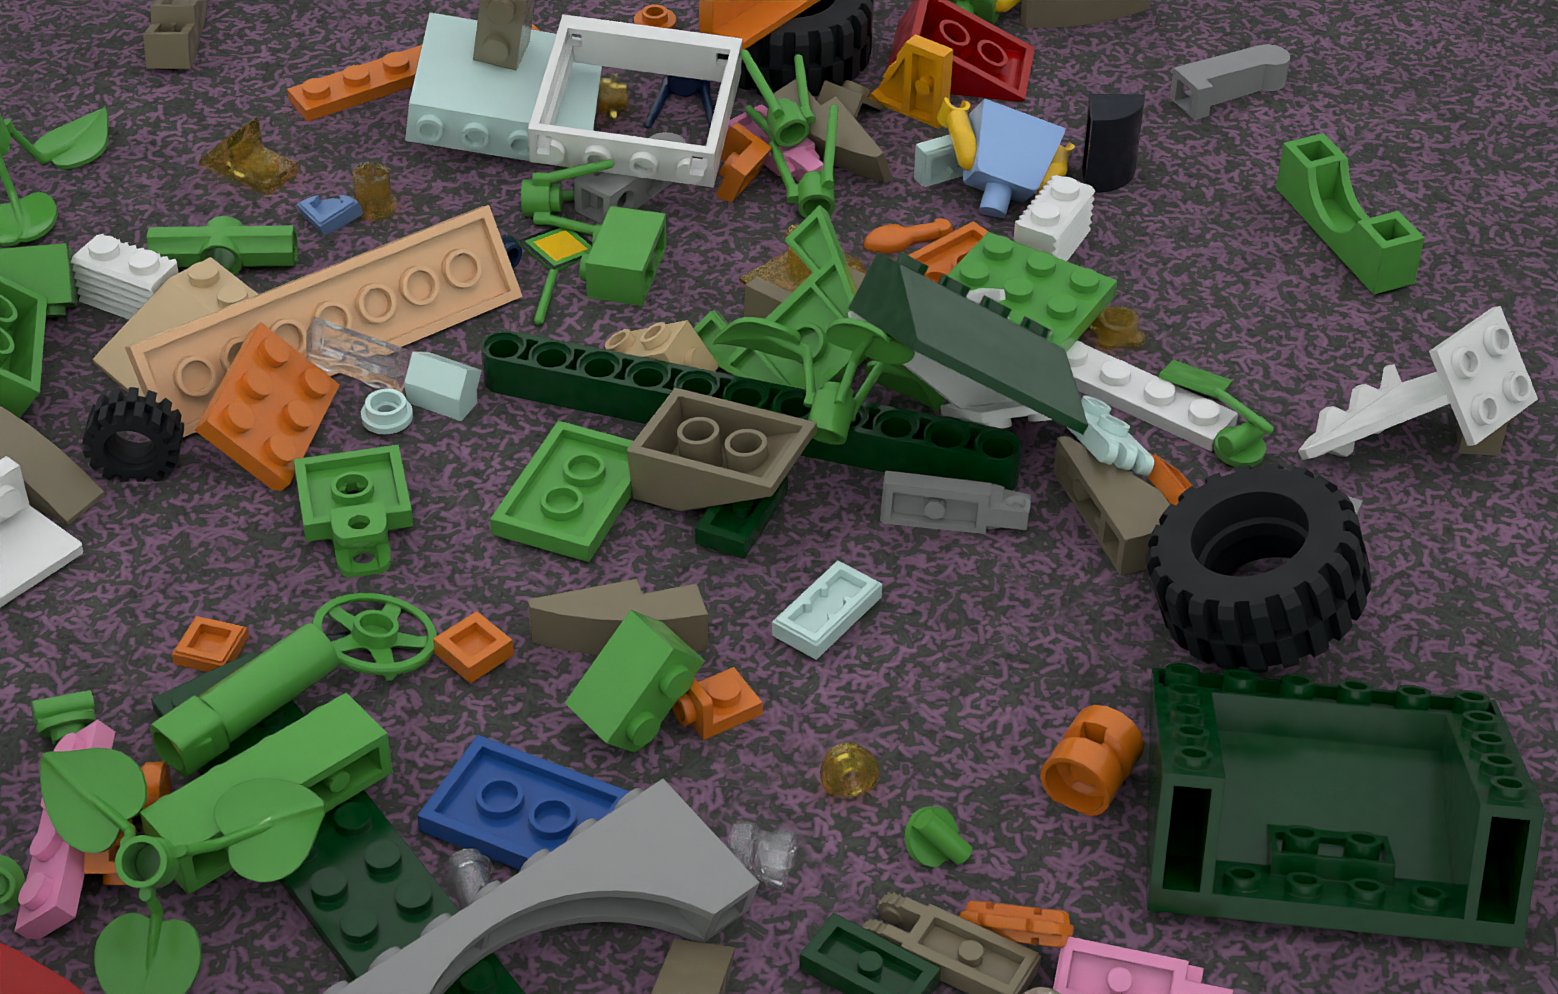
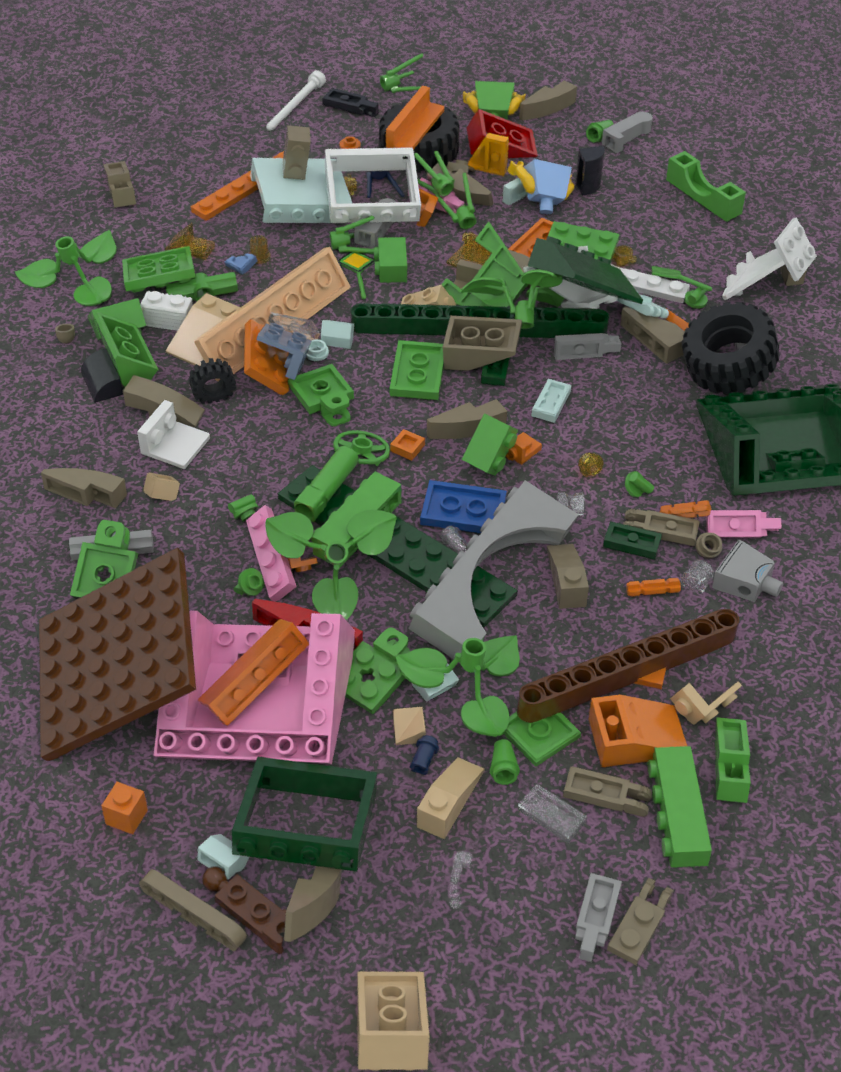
camera: 15 degrees left, 5 degrees up
(150, 196) = (158, 269): none -> bright green plate
(209, 644) = (289, 466): orange tile -> none
(326, 394) = (294, 343): none -> sand blue bracket
(897, 238) = (509, 231): orange piece -> none
(1057, 218) = (579, 208): white brick -> none
(1092, 760) = (689, 440): orange wheel -> none
(1161, 64) = (596, 130): none -> bright green cone

